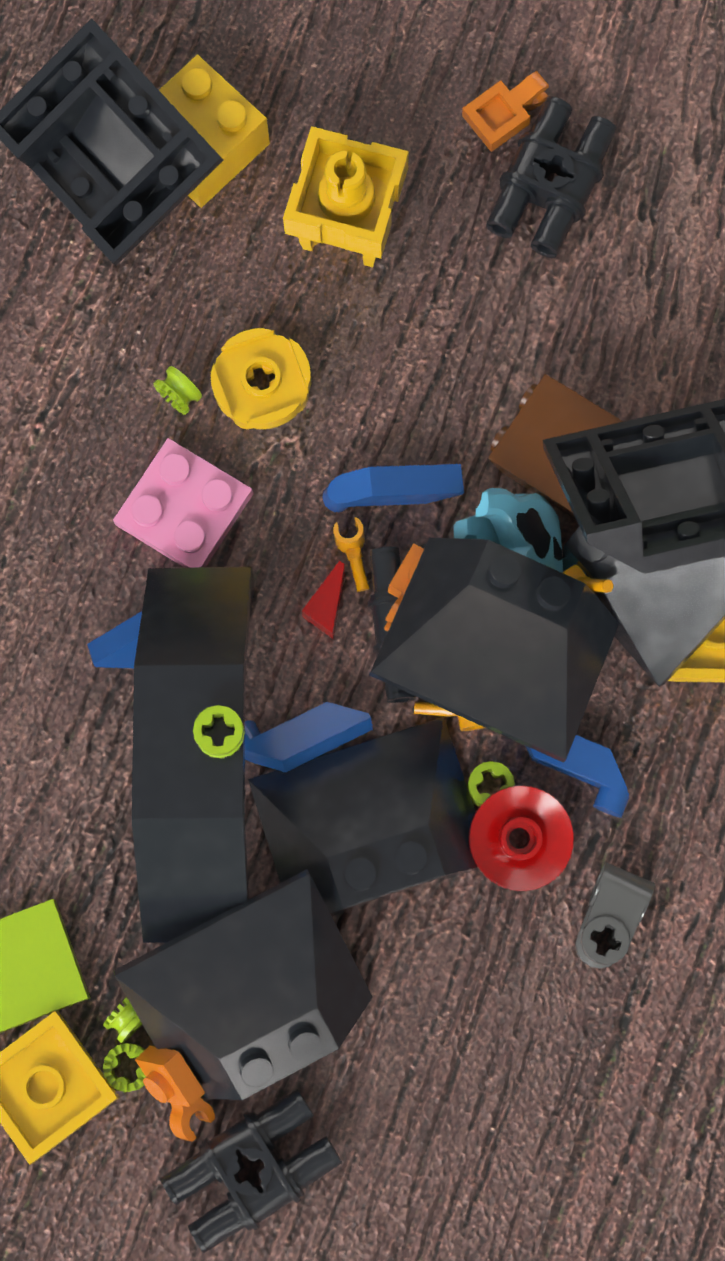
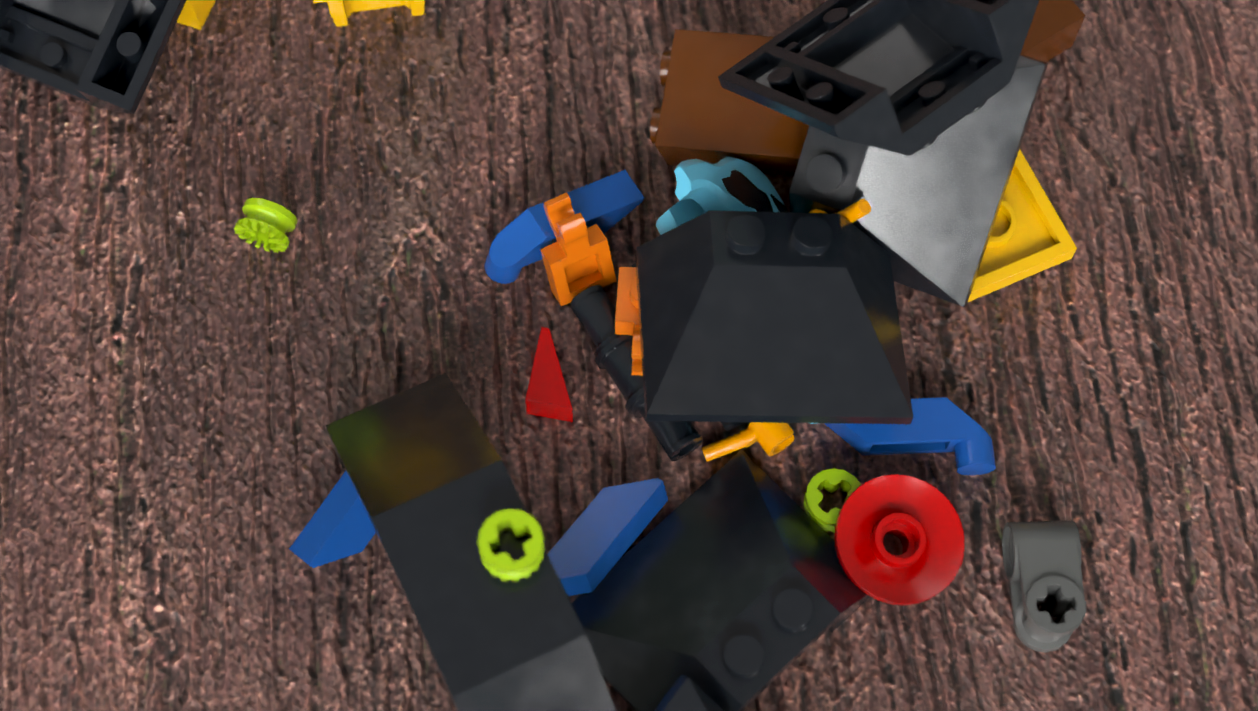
camera: 30 degrees left, 10 degrees down
(183, 506) = (329, 349): bright pink plate -> none
(274, 354) = (363, 207): yellow plate -> none
(352, 548) = (546, 312): light orange hand -> none
(389, 520) = (579, 255): none -> orange plate

